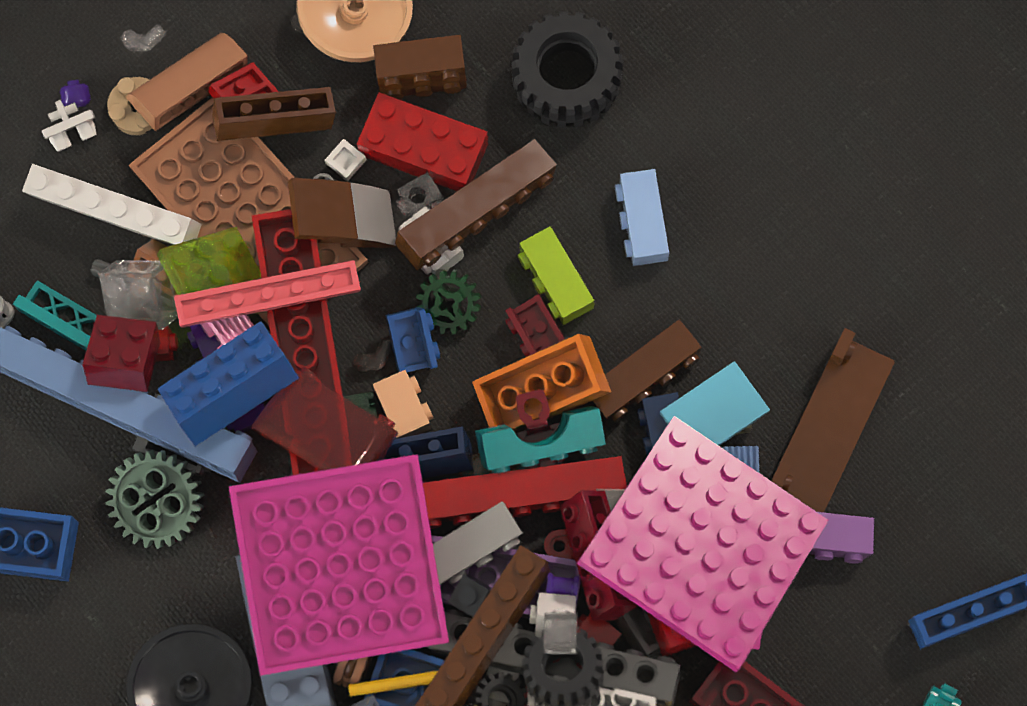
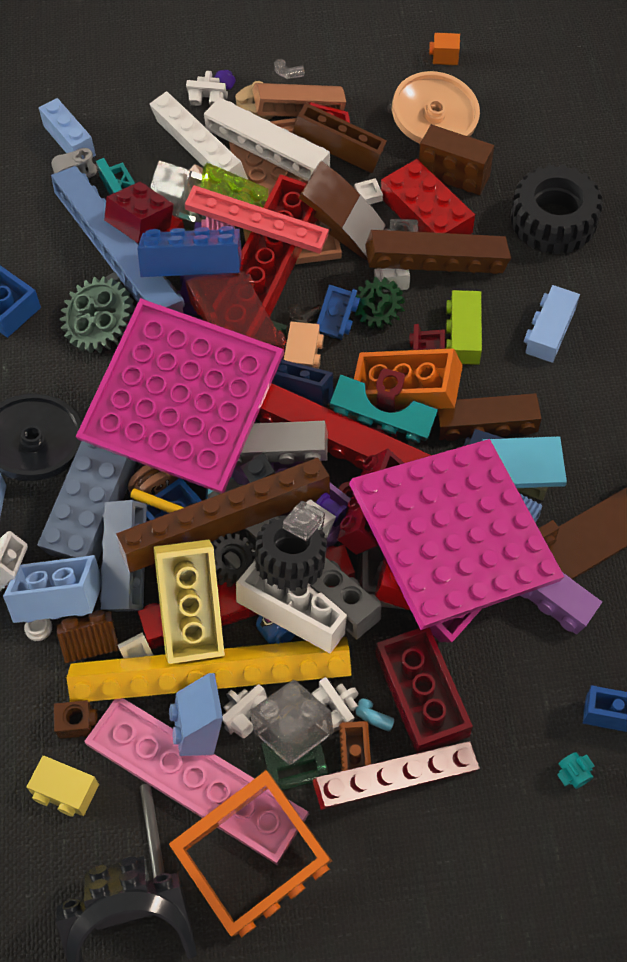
camera: 30 degrees right, 15 degrees down
(192, 162) = (264, 138): none -> white brick

